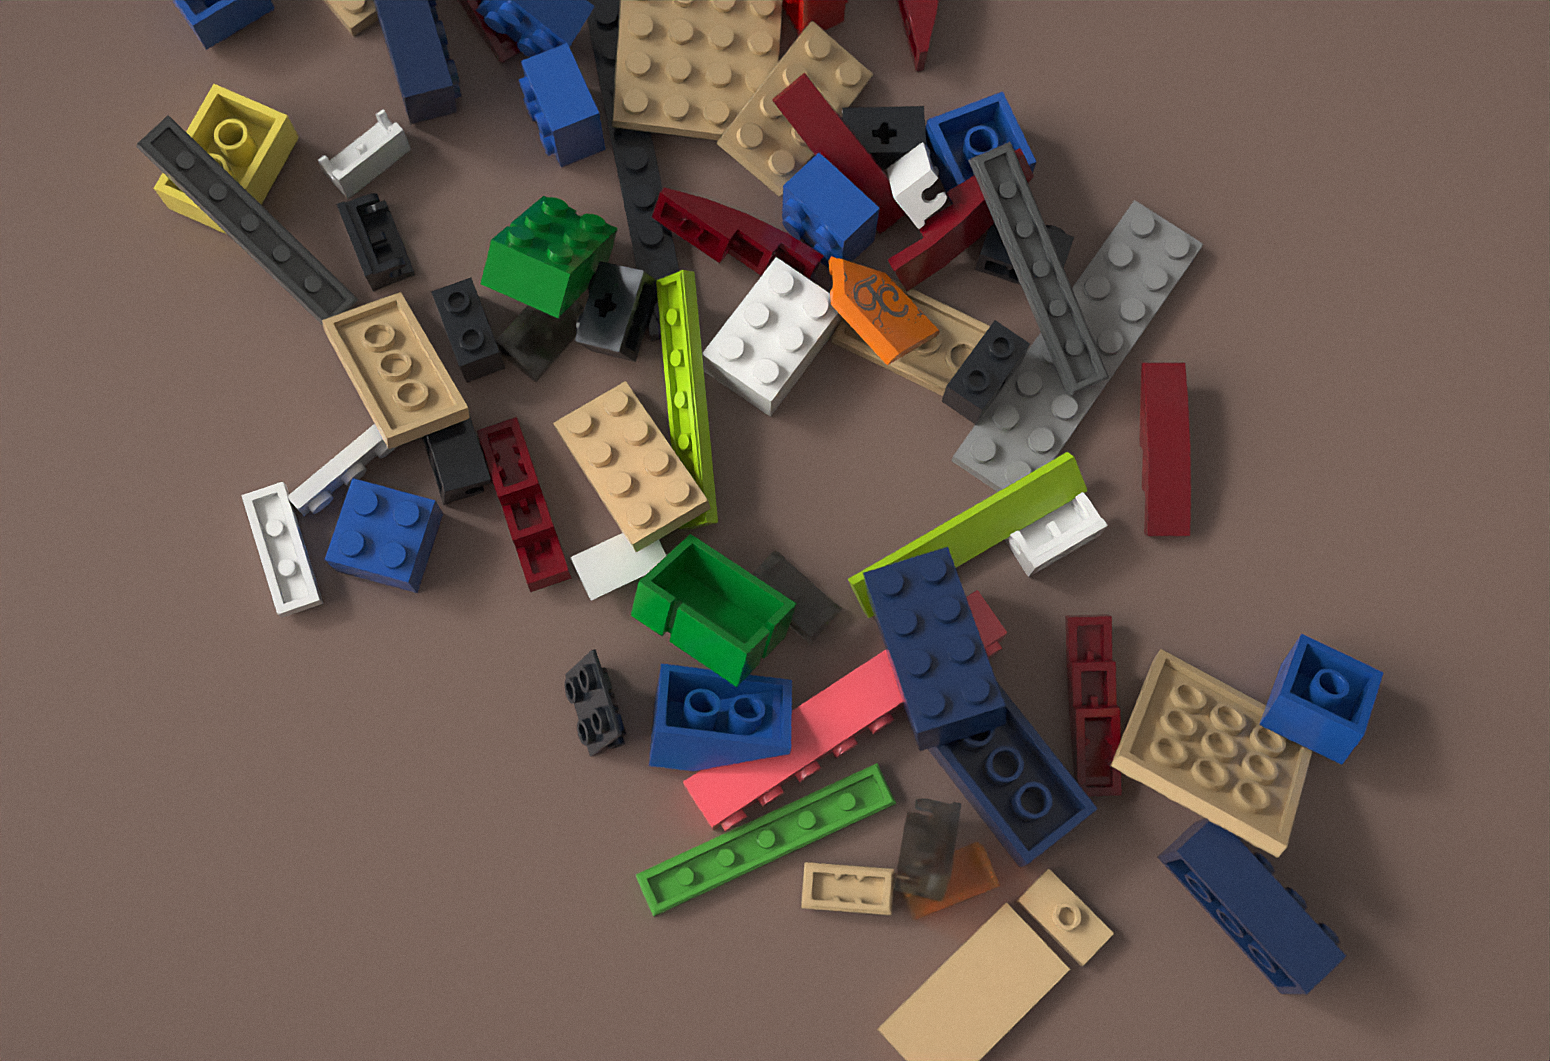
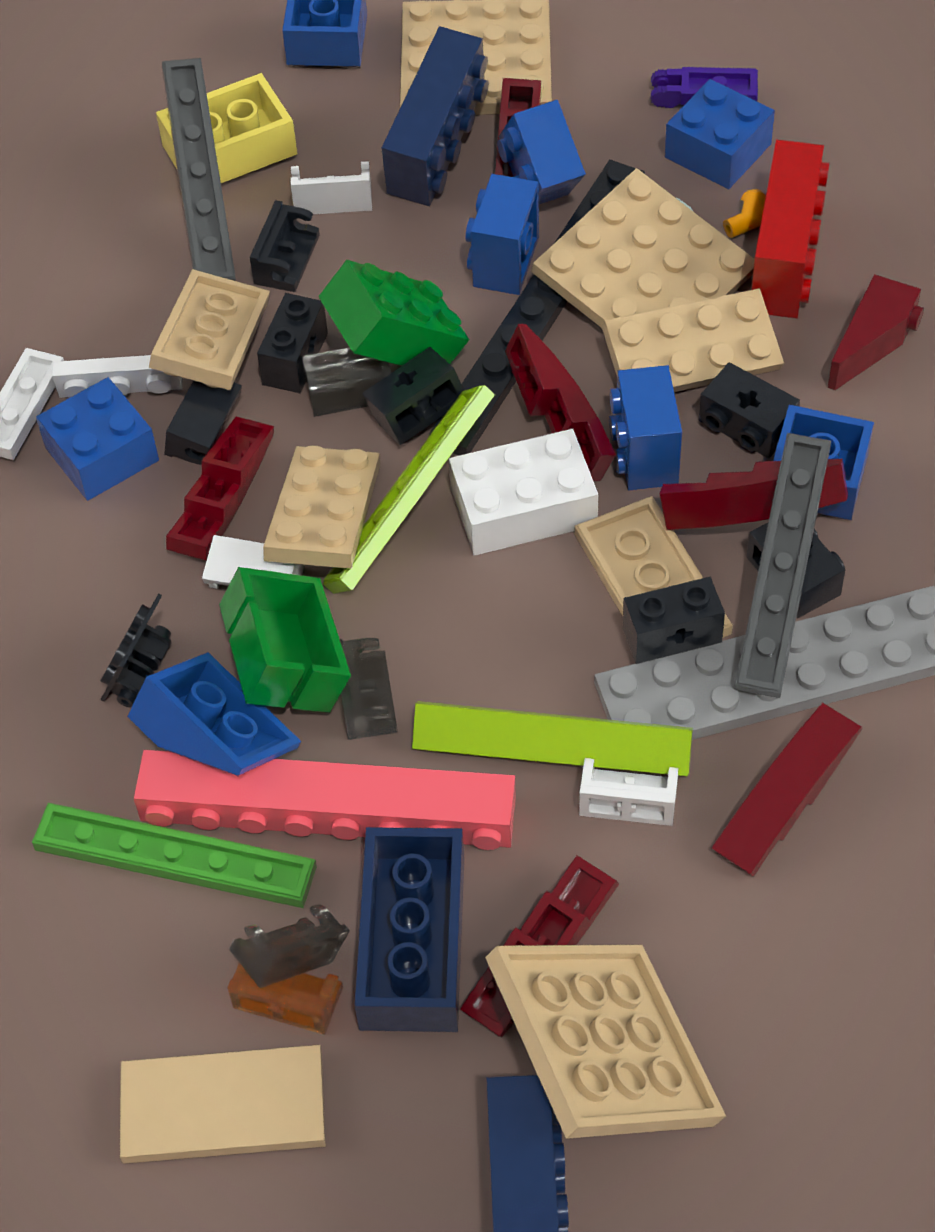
camera: 45 degrees right, 20 degrees down
(832, 137) = (694, 381): dark red slope -> none
(847, 888) = (197, 935): tan plate -> none
(878, 310) = (624, 520): orange tile -> none
(908, 181) = (731, 445): white hinge -> none
(935, 649) = (426, 779): dark blue brick -> none
(1065, 917) = (360, 1099): tan plate -> none
(1322, 699) = (746, 1074): blue brick -> none

